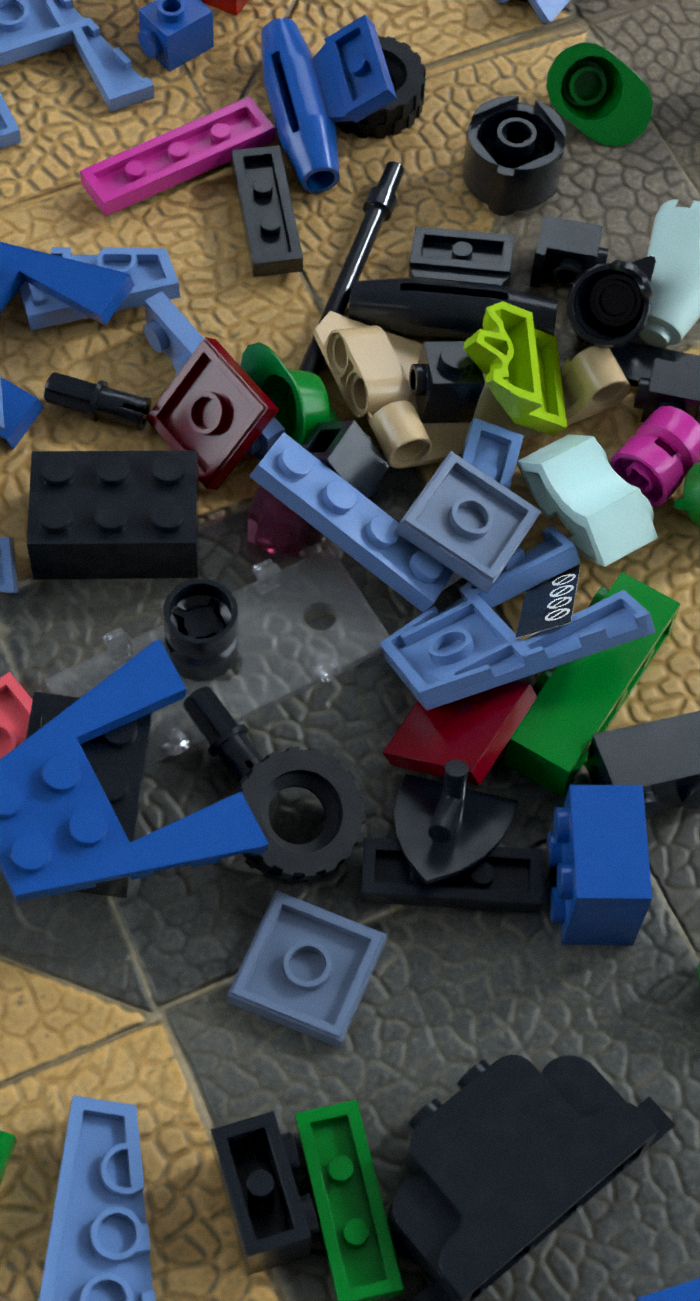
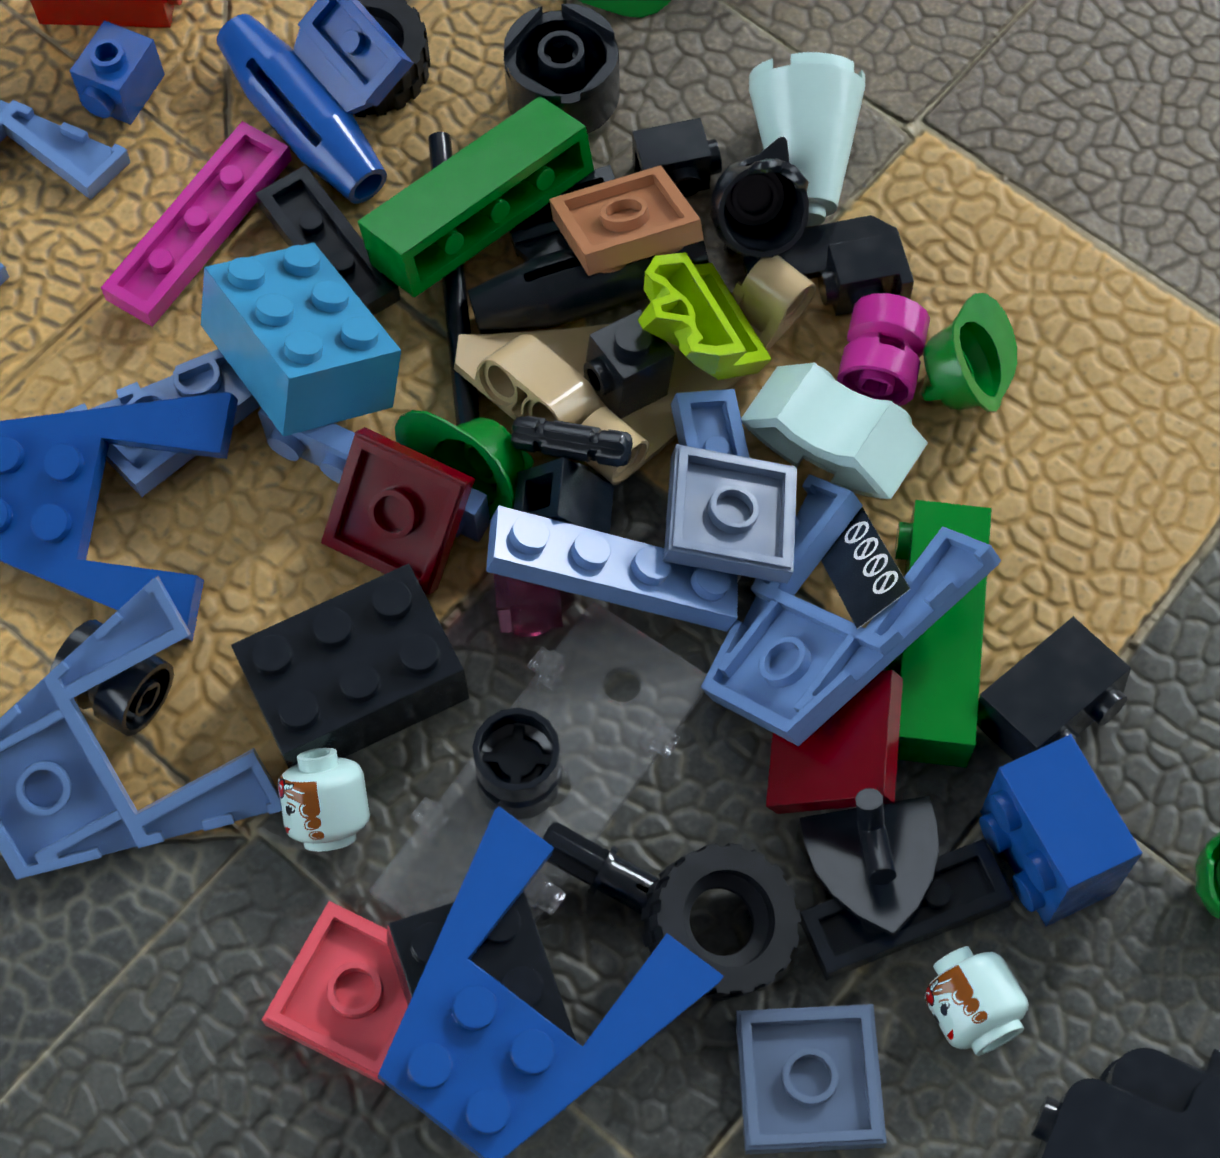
camera: 20 degrees left, 5 degrees up
(42, 595) = (323, 800): none -> light aqua head
(97, 400) = (257, 547): black axle -> none
(203, 259) = (299, 338): none -> dark azure brick
(368, 413) = (572, 441): none -> black axle
(395, 213) = (476, 196): none -> green brick
(469, 967) = (976, 1000): none -> light aqua head
(499, 272) = (626, 220): none -> nougat plate

